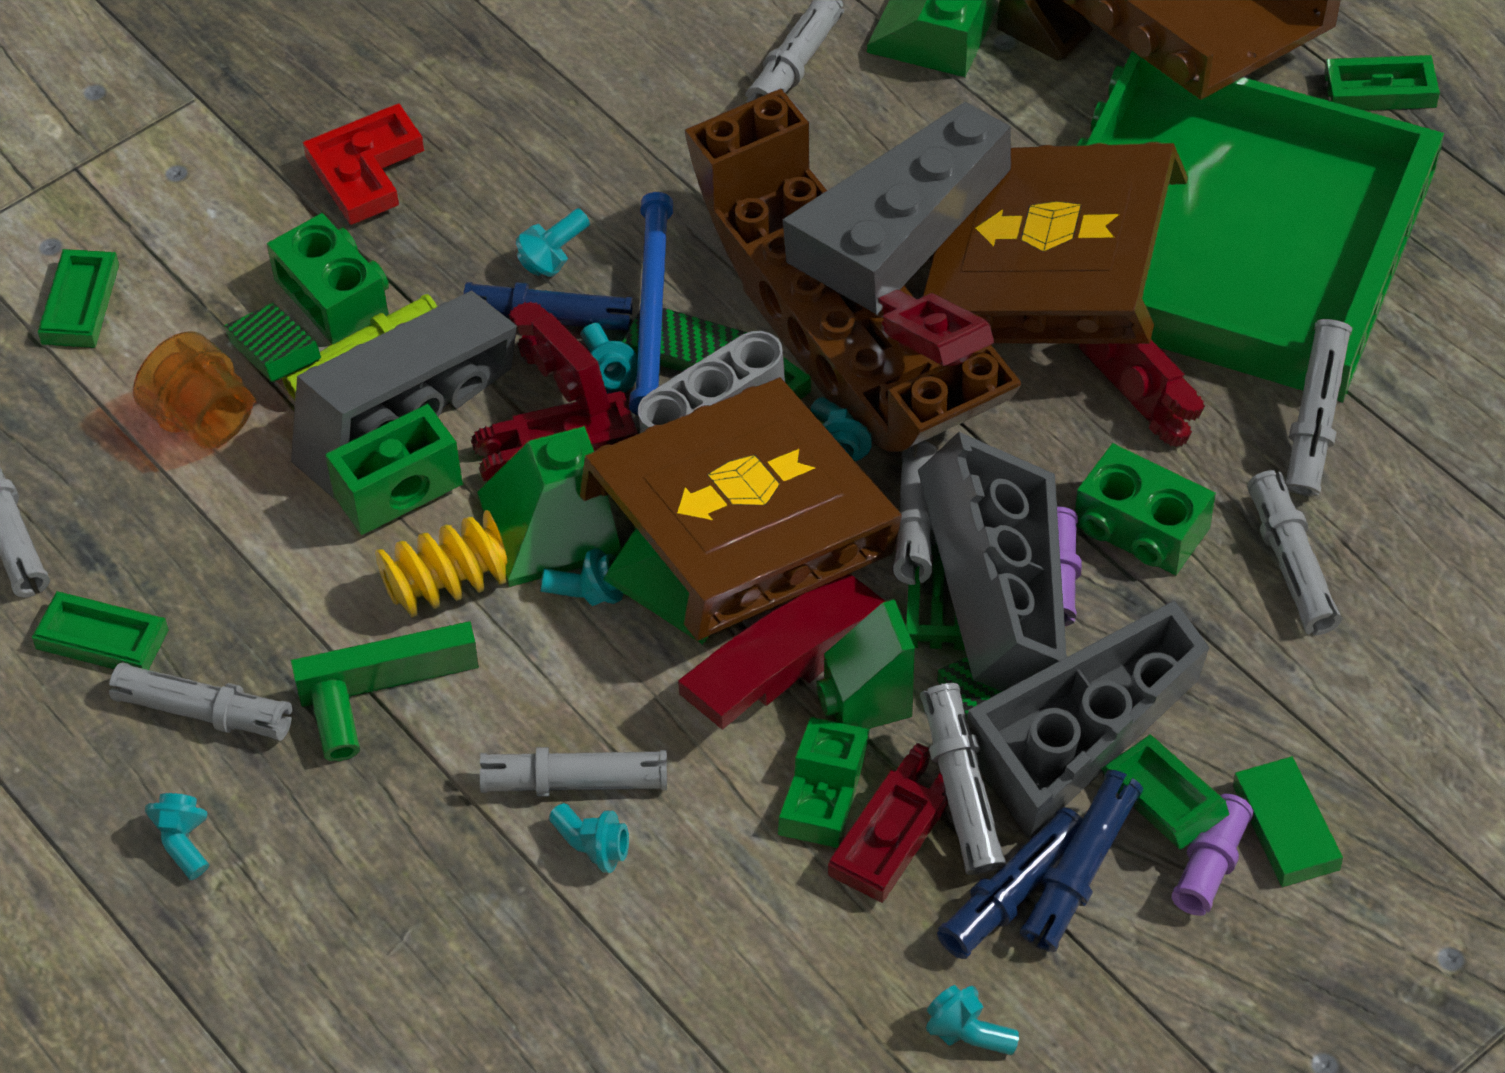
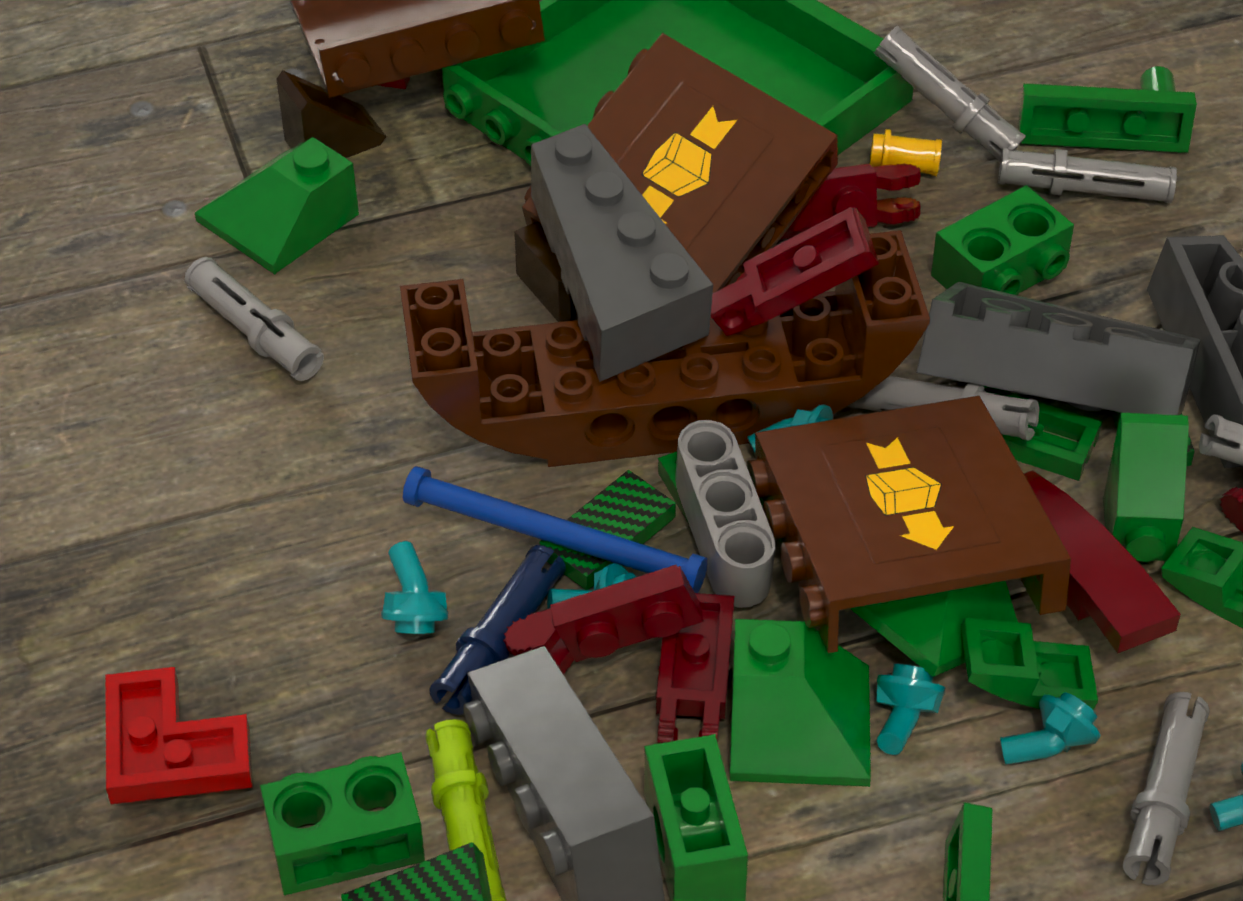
camera: 70 degrees left, 5 degrees down
(443, 564) = (846, 819): yellow piece -> none
(603, 681) = (1065, 723): none -> teal plate
(646, 641) = (1016, 668): none -> green slope
(1238, 397) = (899, 150): none -> yellow pin
(1386, 555) = (1110, 117): none -> green piece

